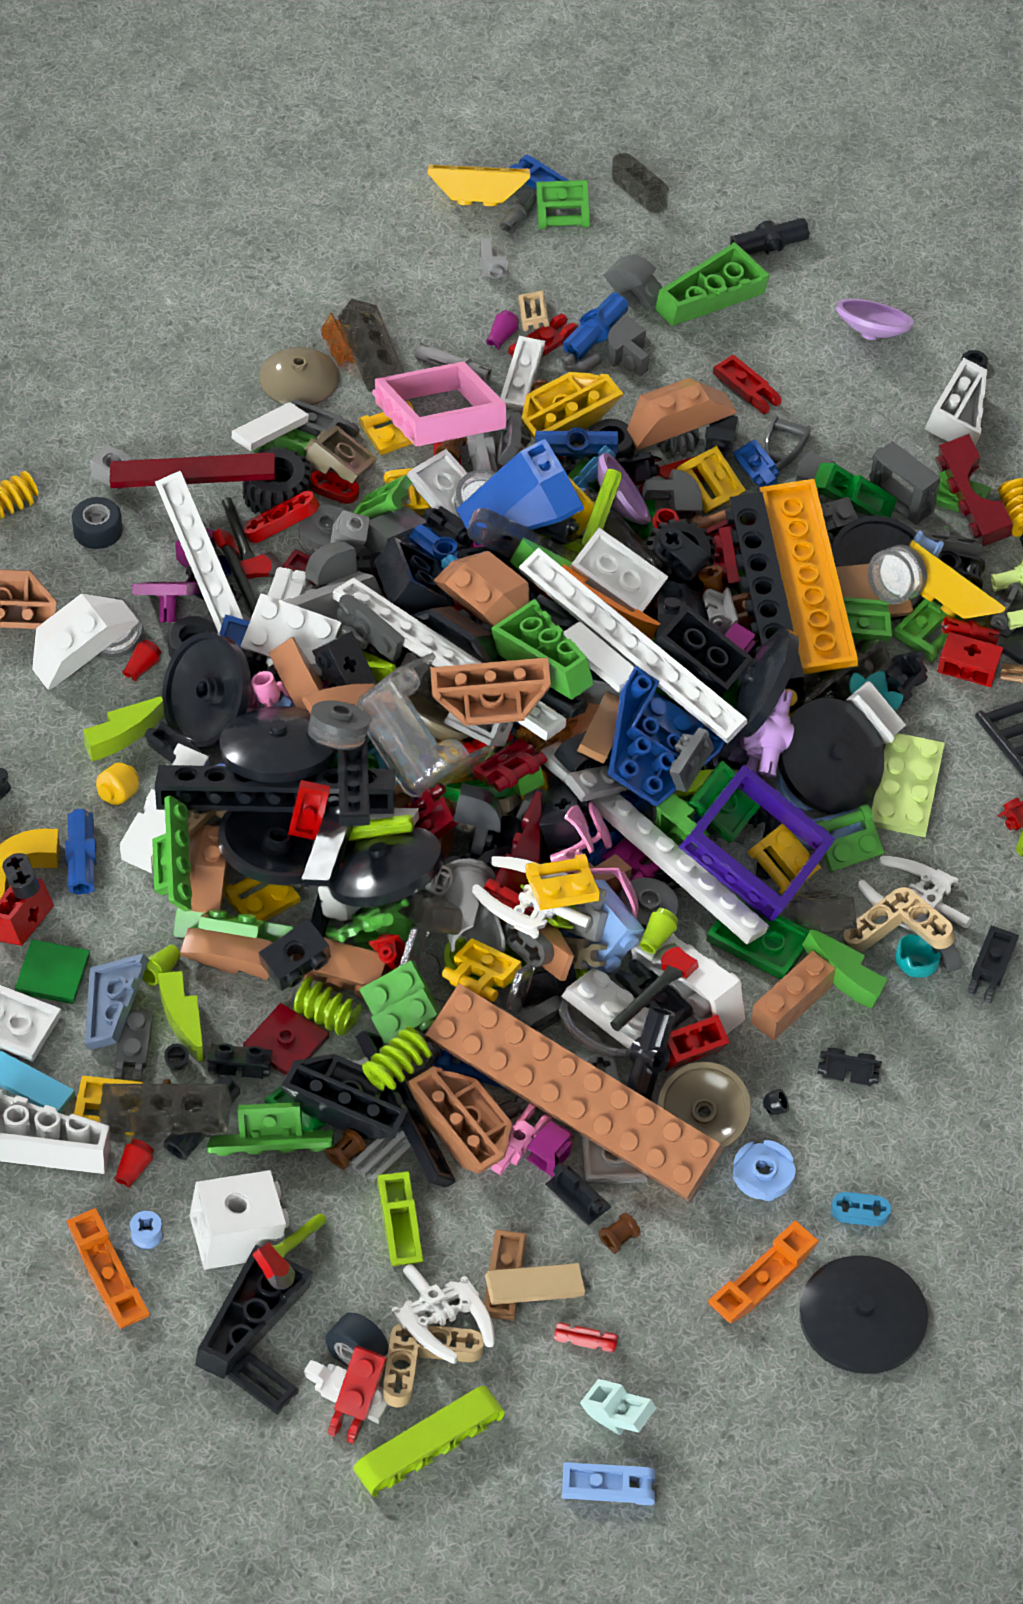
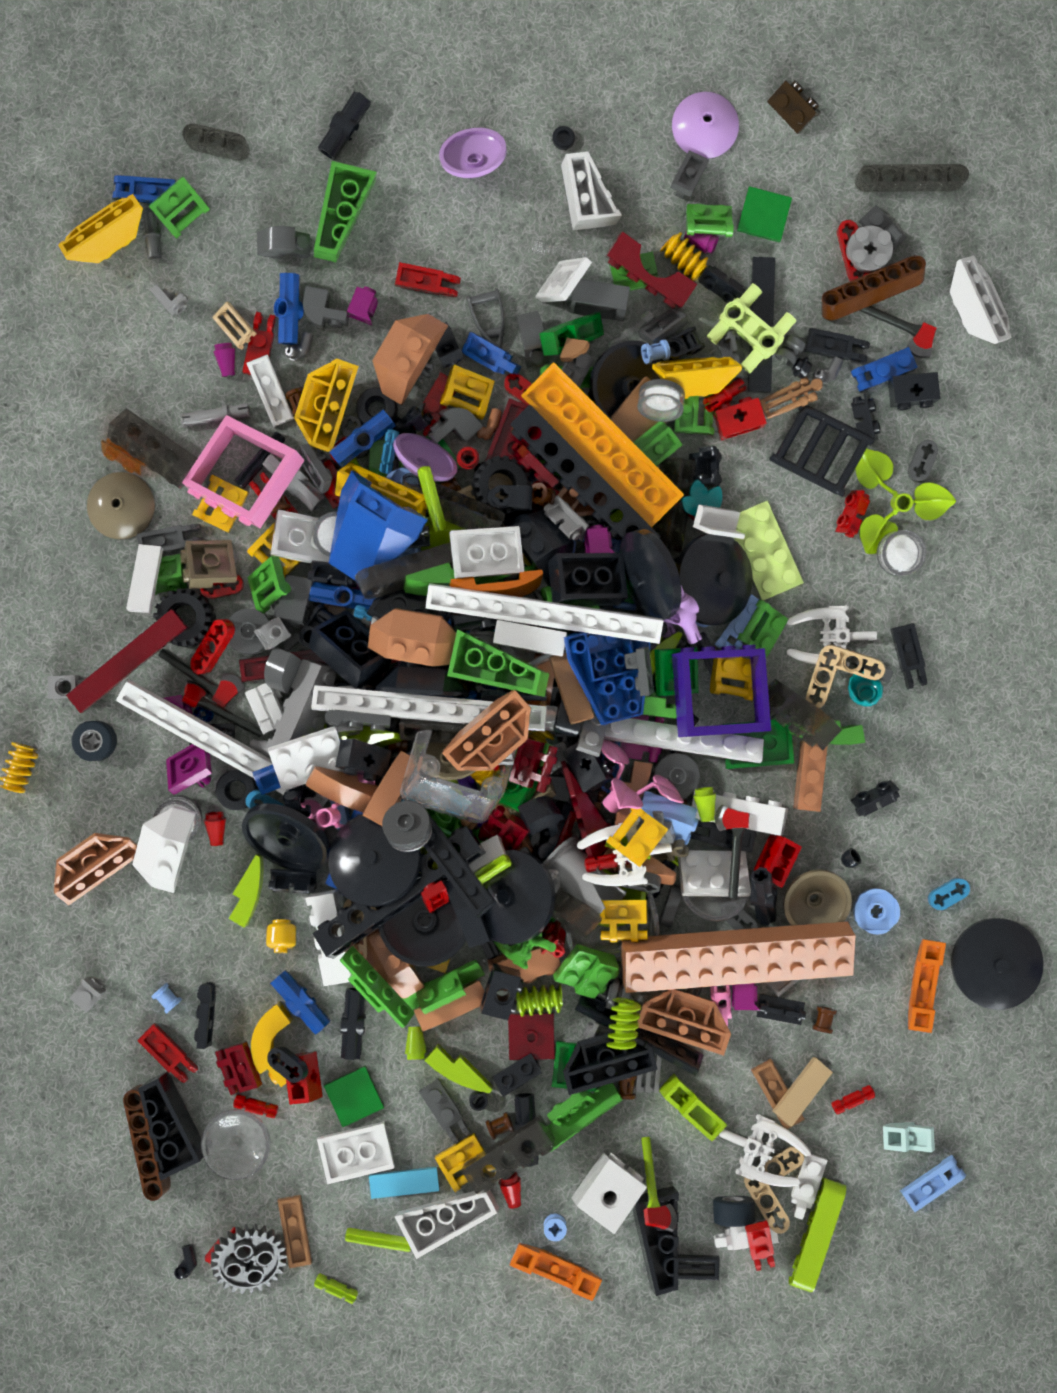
camera: 40 degrees left, 35 degrees up
(111, 998) = (408, 1093): sand blue wing -> none
(114, 904) = (352, 1024): none -> black piece
(475, 1373) = (810, 1176): none -> white hinge
(669, 364) = (363, 304): none -> magenta window
(843, 491) = (573, 349): none -> medium nougat tile
(879, 437) = (563, 280): none -> white tile

